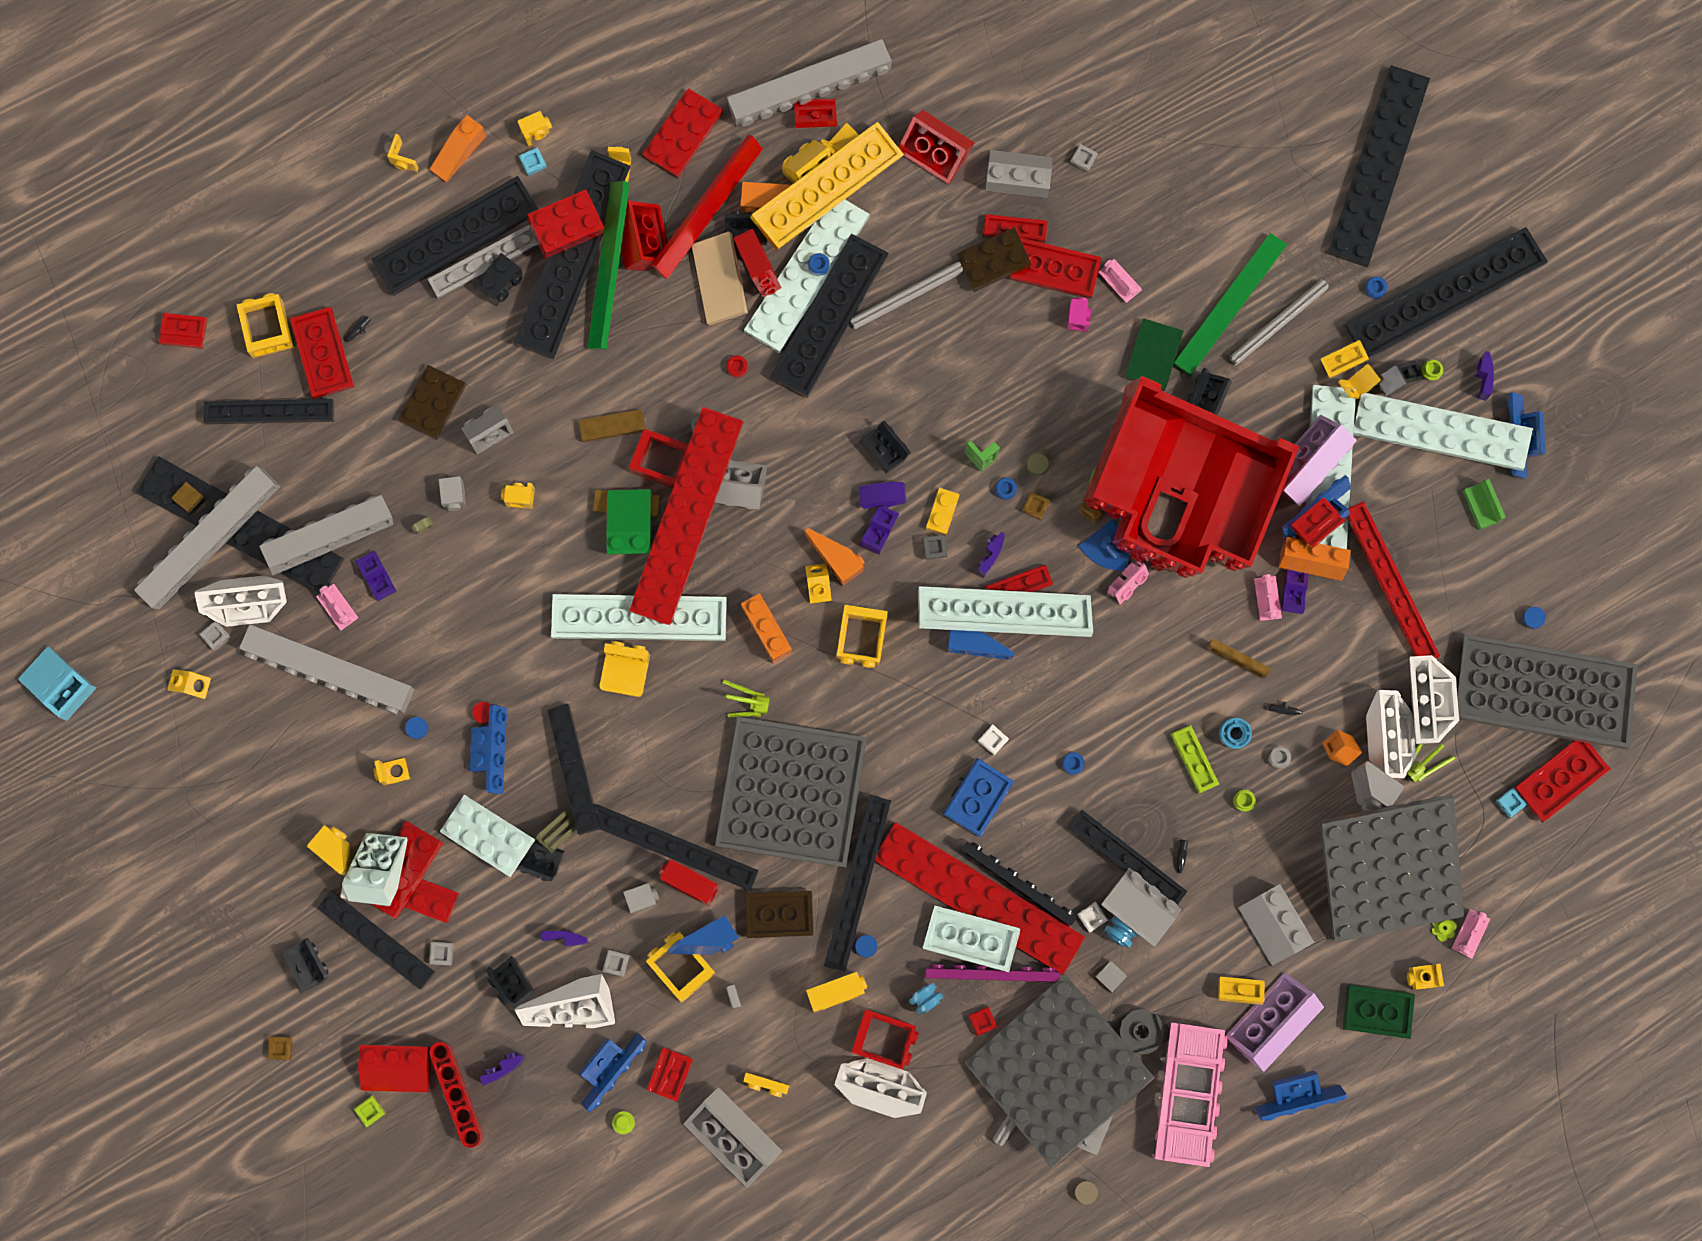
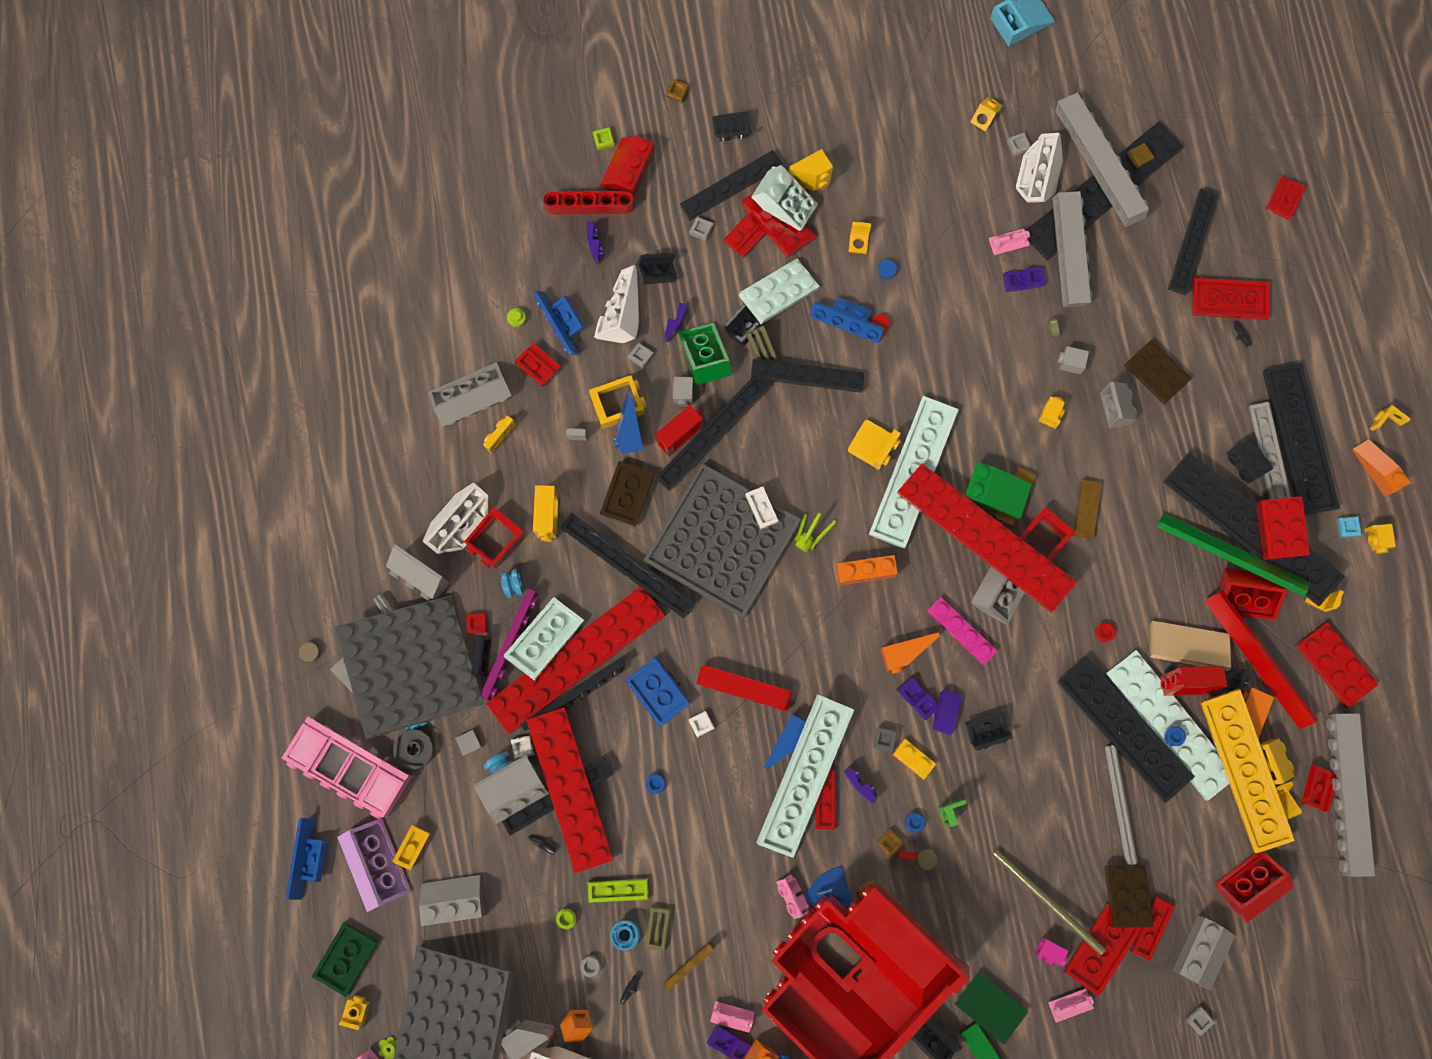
camera: 115 degrees right, 0 degrees up
(268, 345) = (1250, 270): yellow window -> none
(327, 669) = (960, 216): light grey brick -> none
(588, 891) = (705, 354): none -> green slope
(742, 761) = (761, 508): none -> white plate
(791, 509) = (962, 631): none -> dark pink plate
(818, 583) = (889, 628): yellow bracket -> none
(861, 614) = (855, 643): yellow window -> none
(866, 946) = (574, 553): blue tile -> none
(939, 709) = (744, 688): none -> red beam
(957, 1108) = (416, 574): none -> light grey slope
(1015, 1000) = (481, 655): none -> black tile
(1030, 333) = (1049, 902): none -> olive piece
(1041, 483) = (907, 855): none -> red tile
(1115, 847) = (570, 790): none -> red plate
(1197, 709) = (660, 911): none -> olive tile

